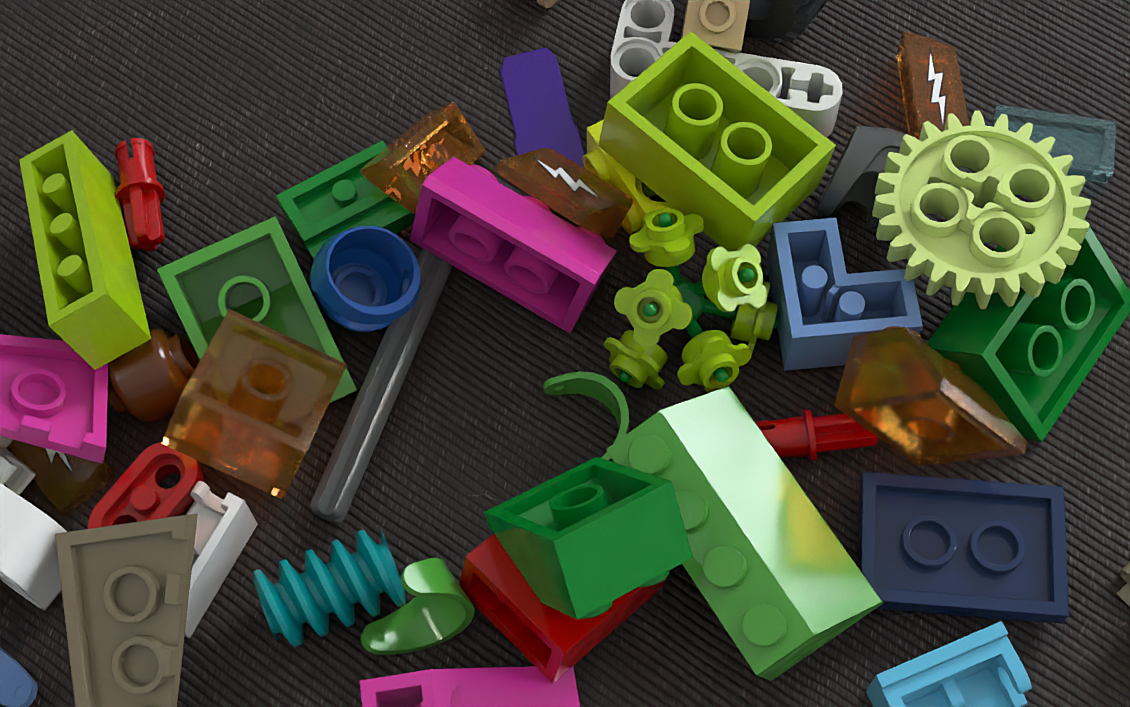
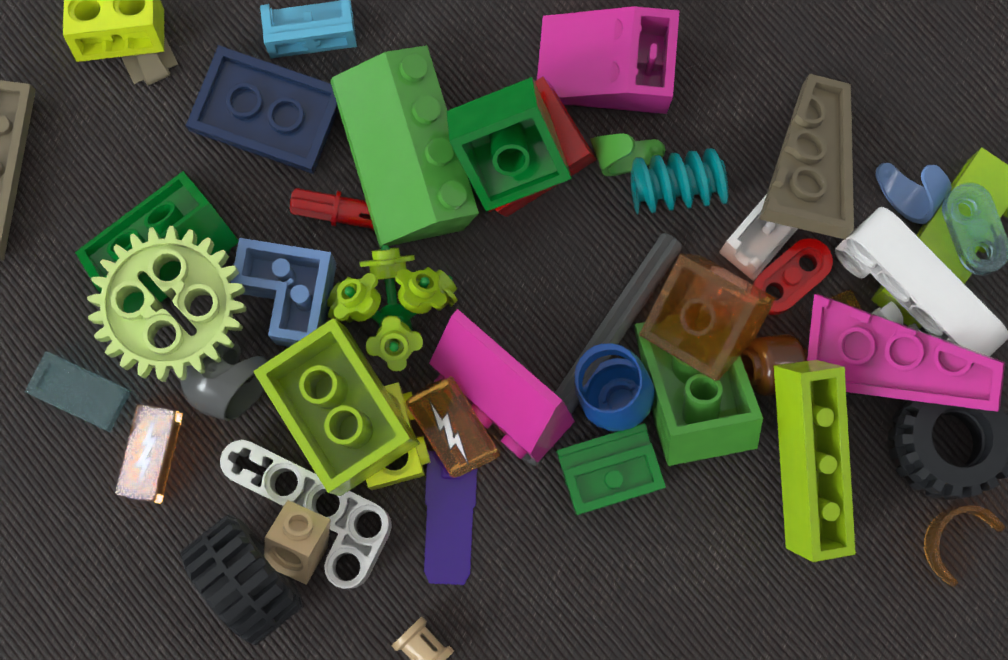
camera: 170 degrees left, 15 degrees up
(140, 195) = (767, 521): red axle -> none
(420, 151) = (549, 491): clear orange slope -> none
(597, 387) = (470, 228): bright green helmet -> none
(922, 401) = (255, 190): clear orange slope -> none

